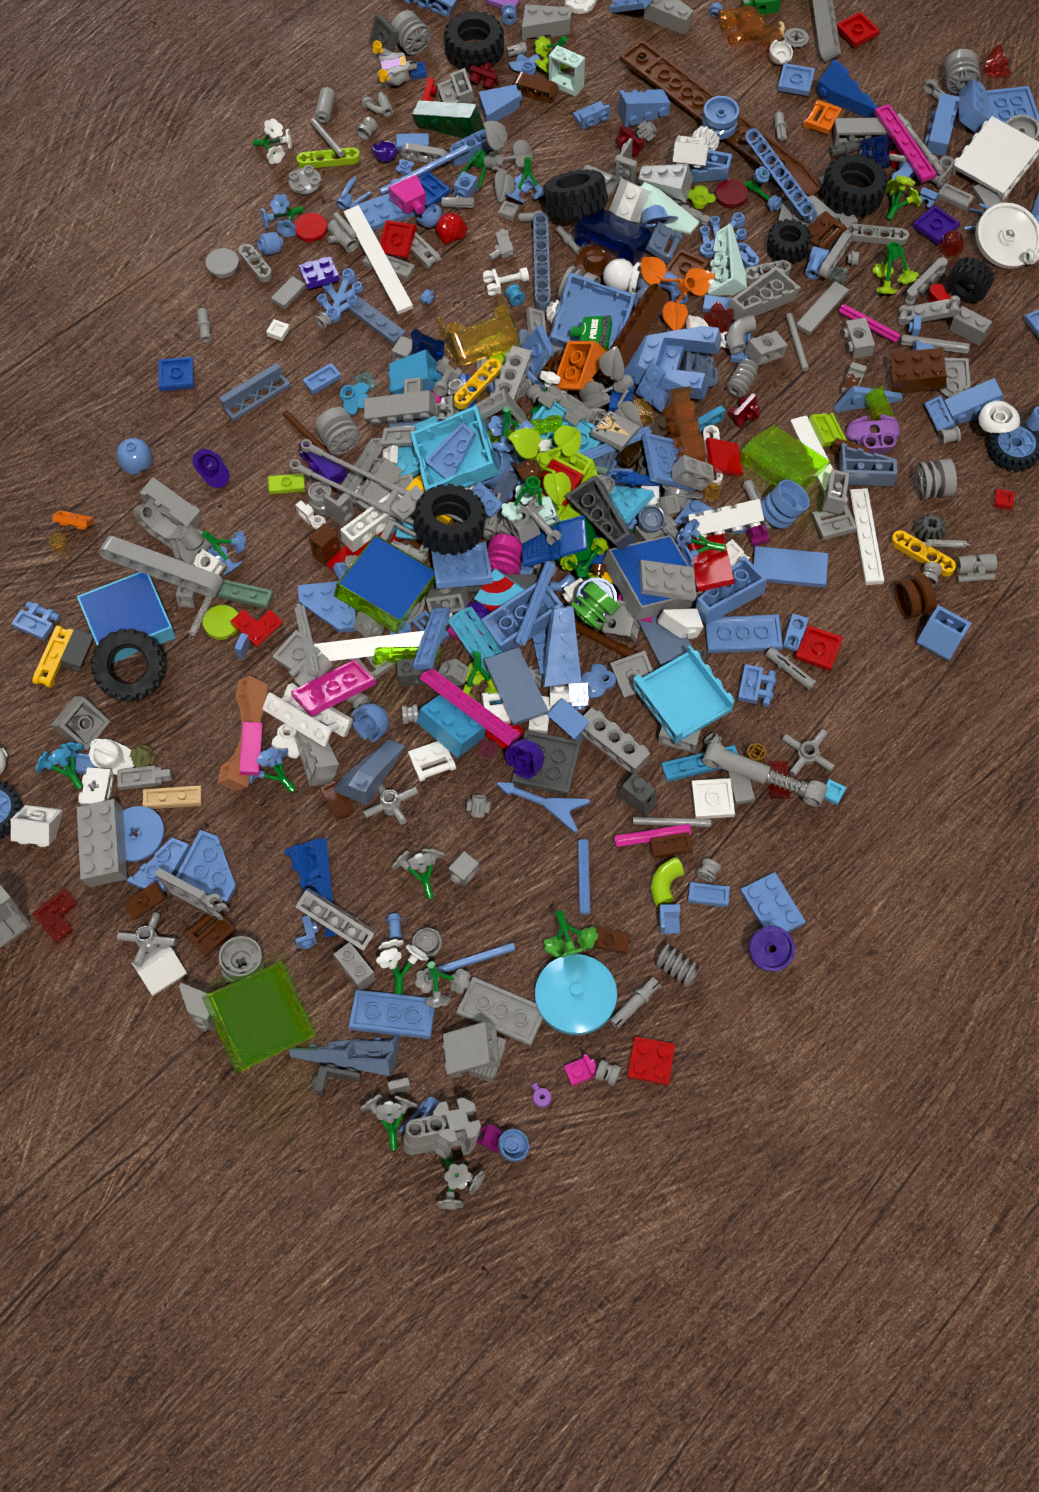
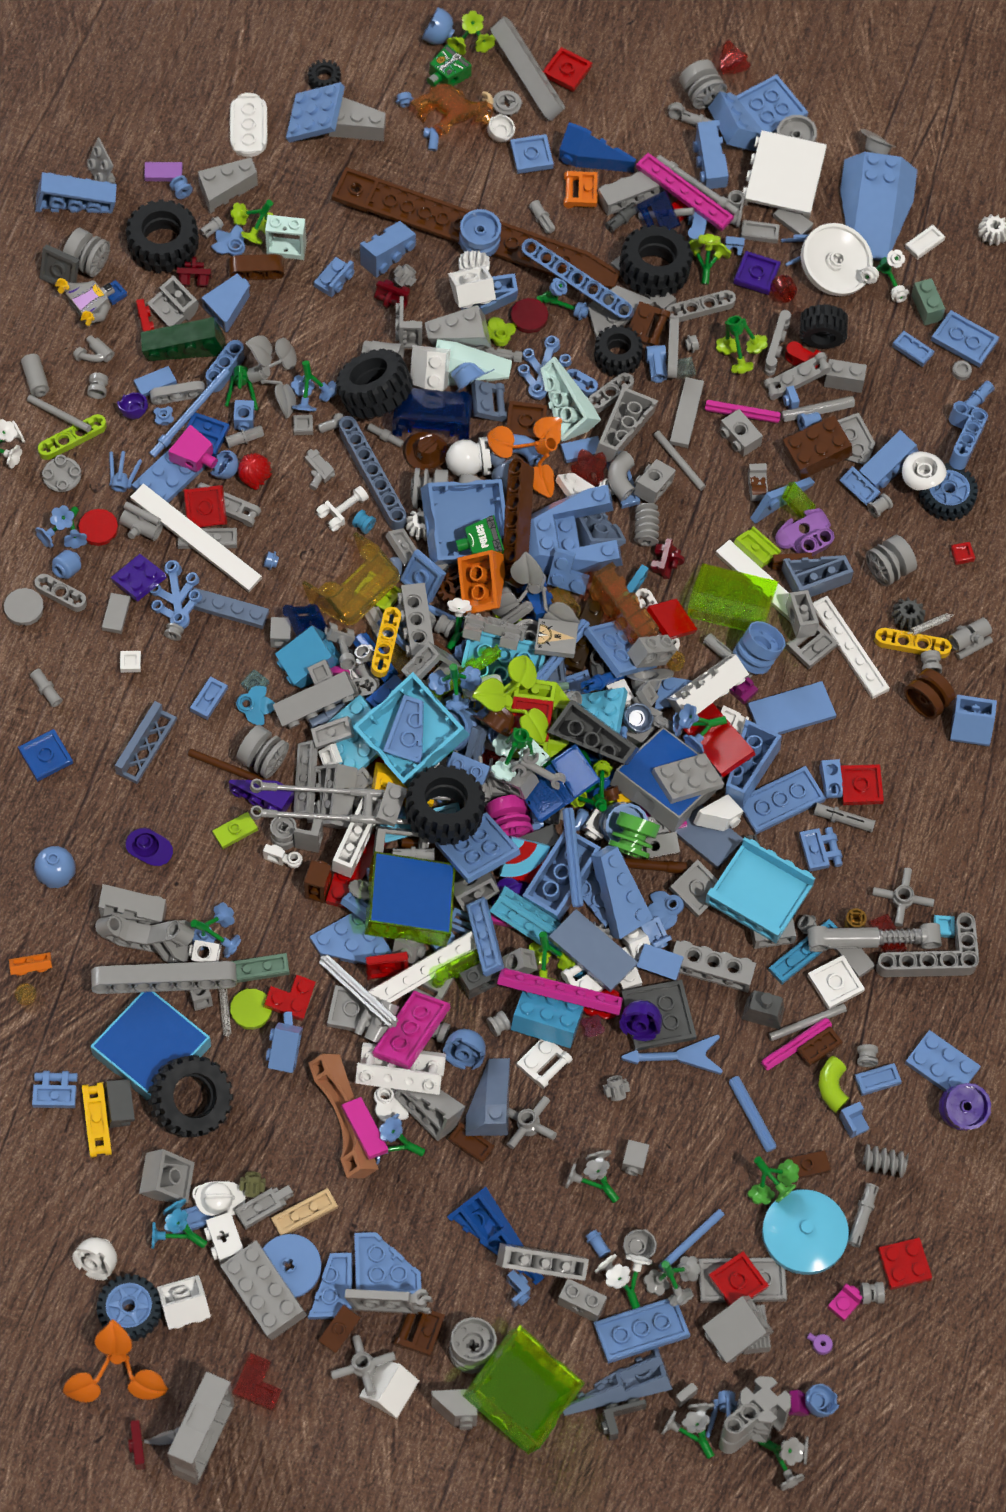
camera: 30 degrees left, 0 degrees up
(226, 660) = (284, 1048): none -> medium blue brick
(341, 629) = (386, 965): none -> red plate
(495, 1007) = (738, 1279): none -> red plate
(723, 40) = (433, 138): none -> medium blue arm
(812, 815) = (936, 958): none -> light grey beam

